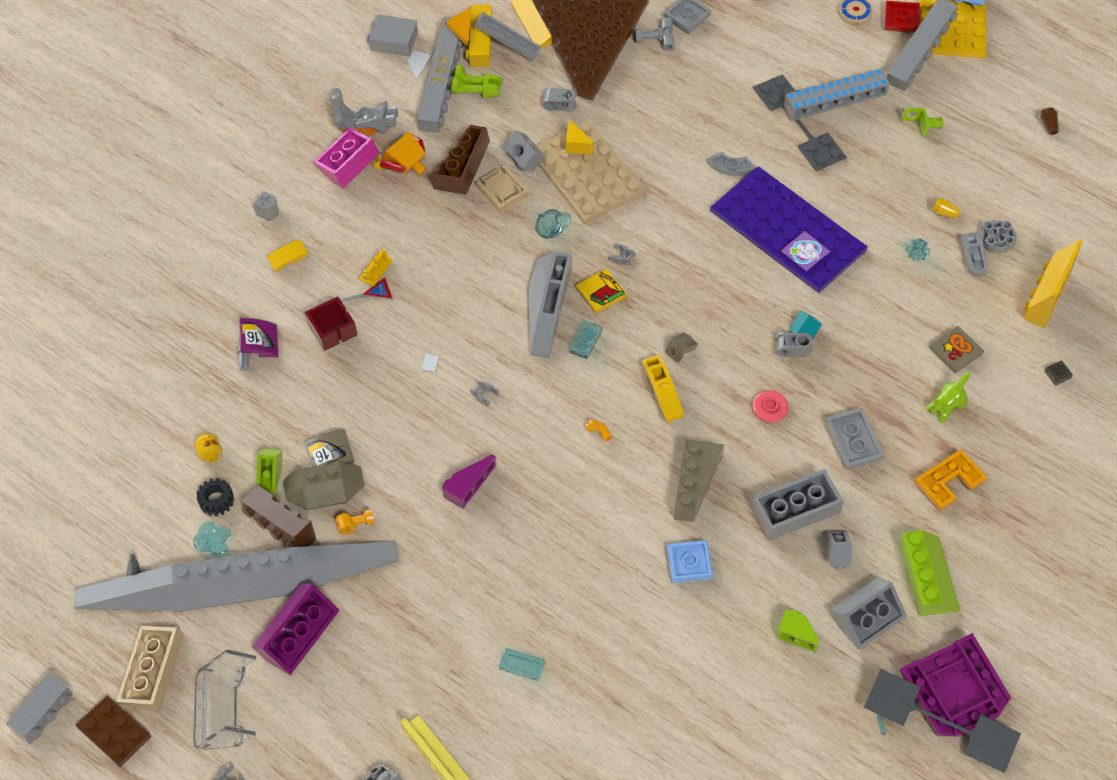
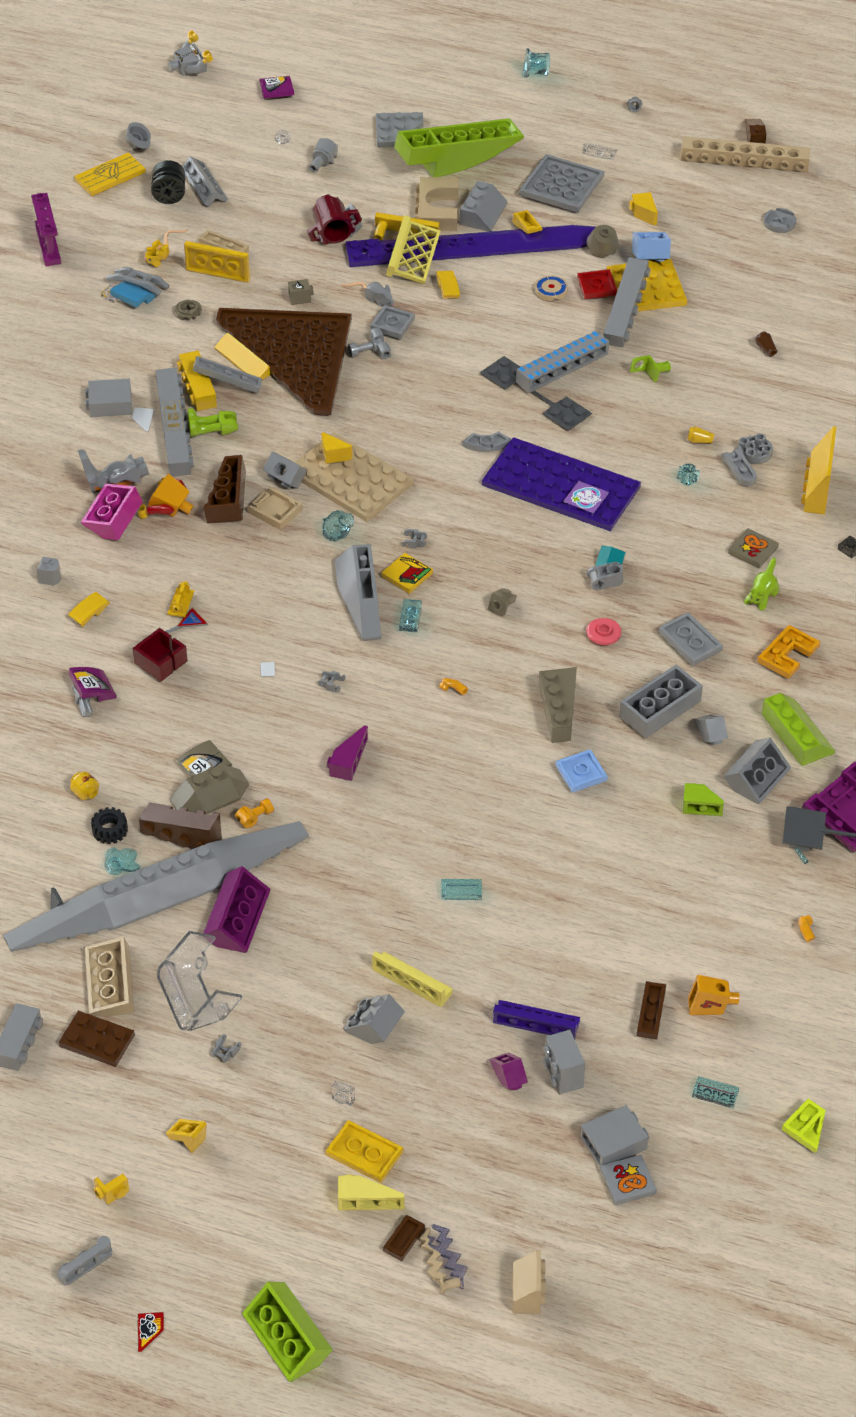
camera: 20 degrees left, 10 degrees down
(269, 469) = (152, 787): lime slope -> none
(460, 25) = (177, 373): light orange tile -> none
(557, 100) = (297, 420): light grey piece -> none
(663, 388) = (501, 636): yellow slope -> none

